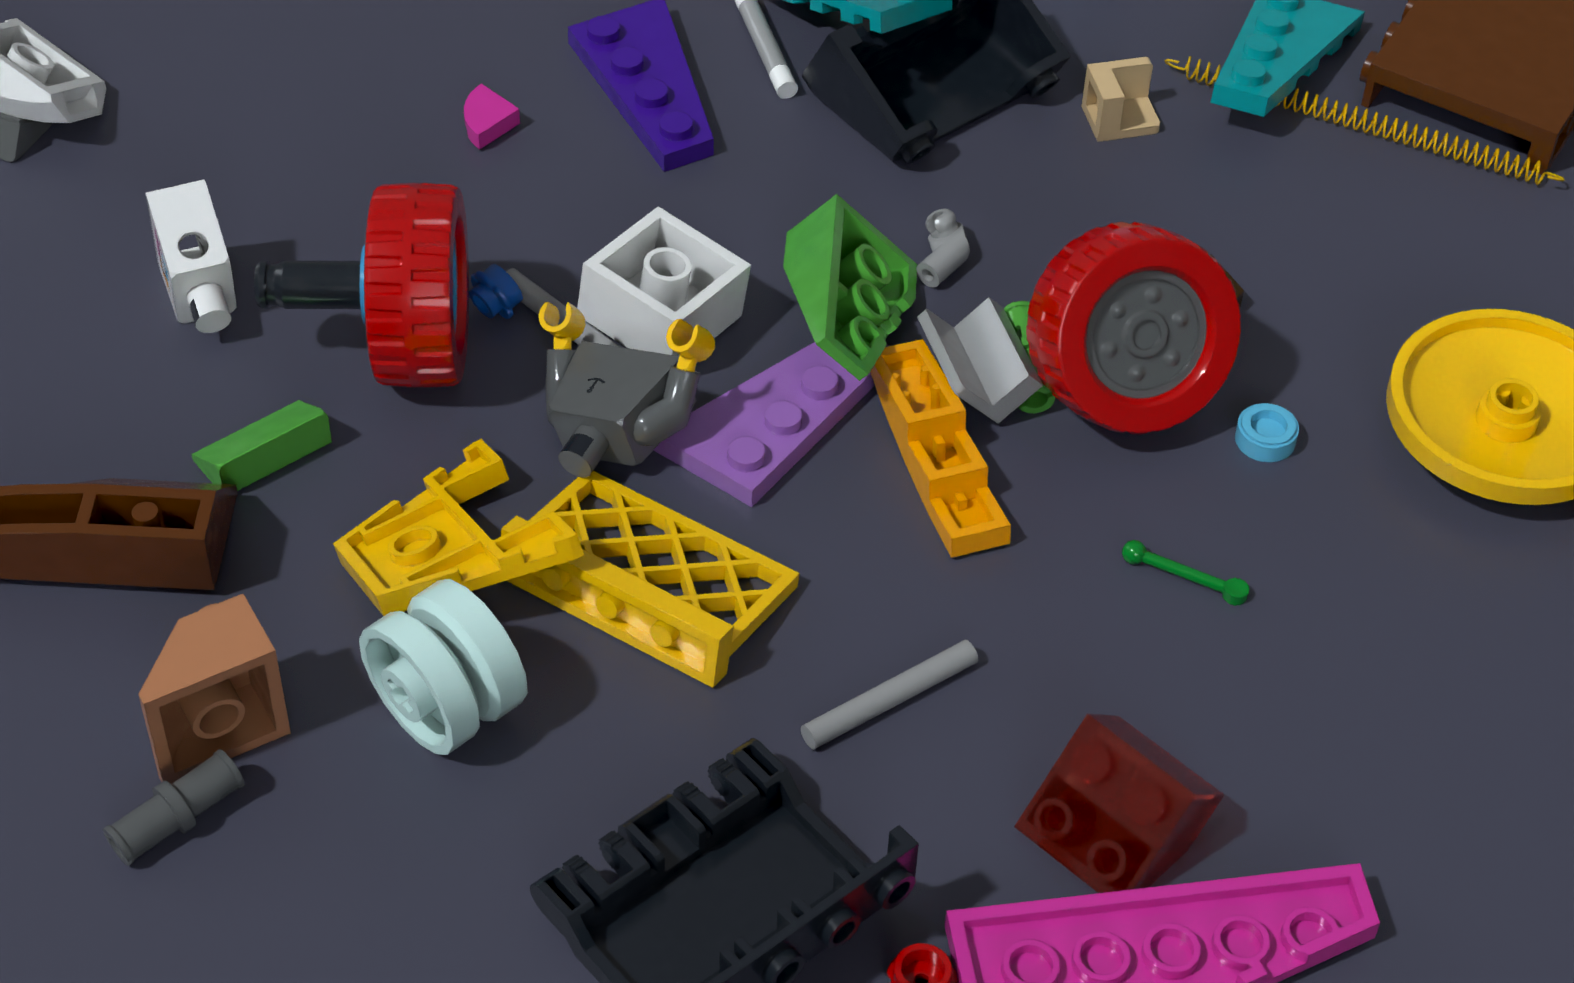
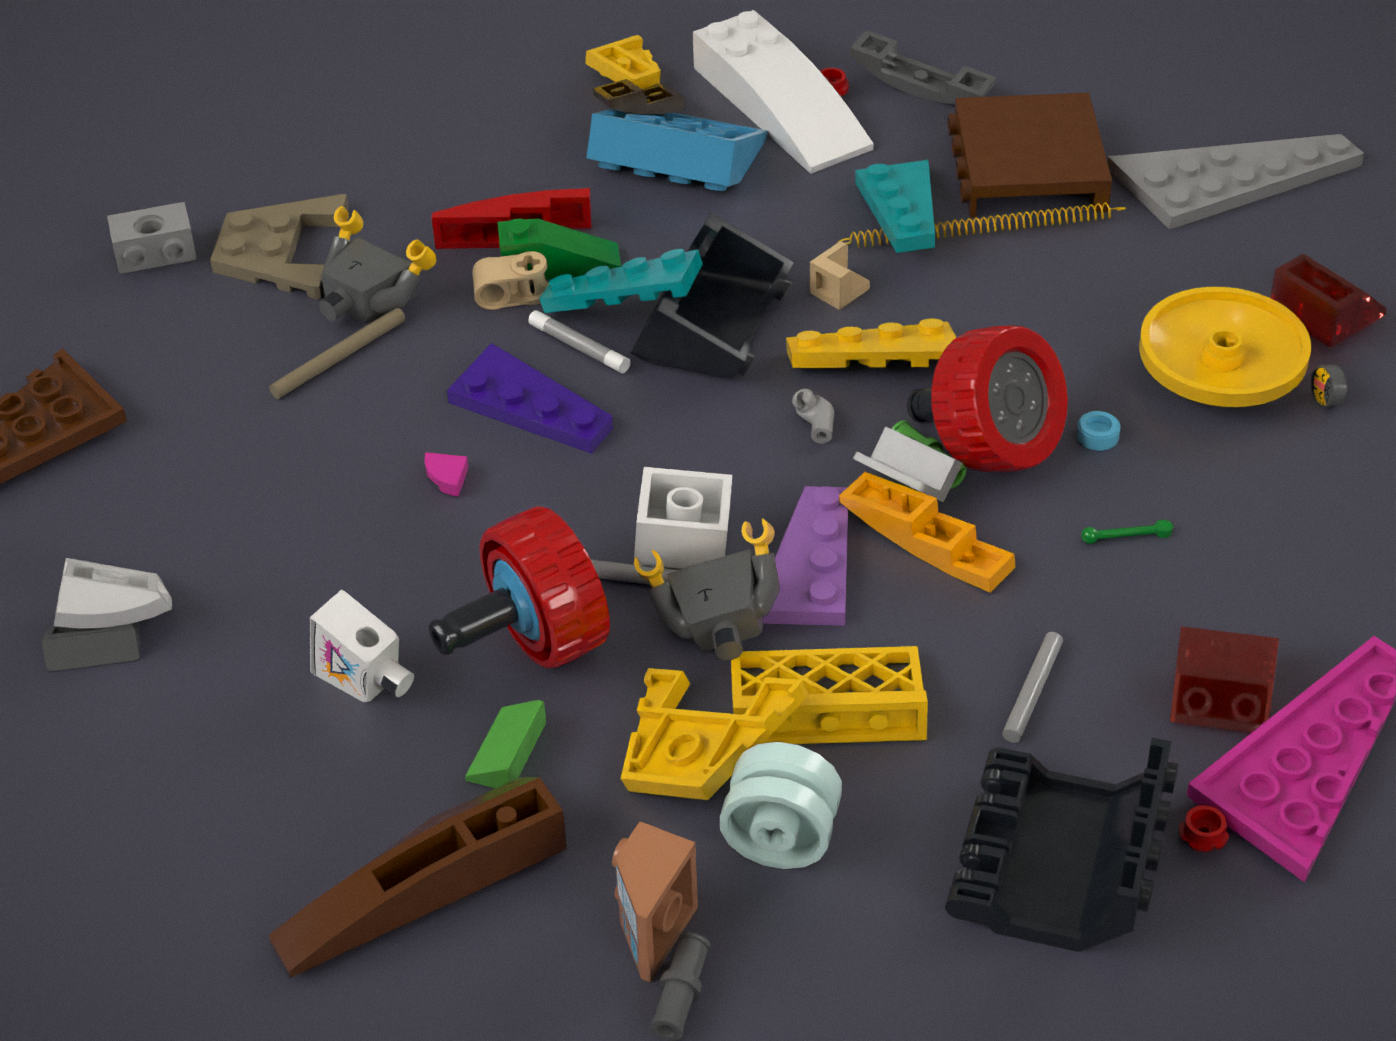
camera: 30 degrees left, 5 degrees down
(848, 283) = (788, 458): bright green wedge -> none
(1074, 196) = (871, 346): none -> yellow wing

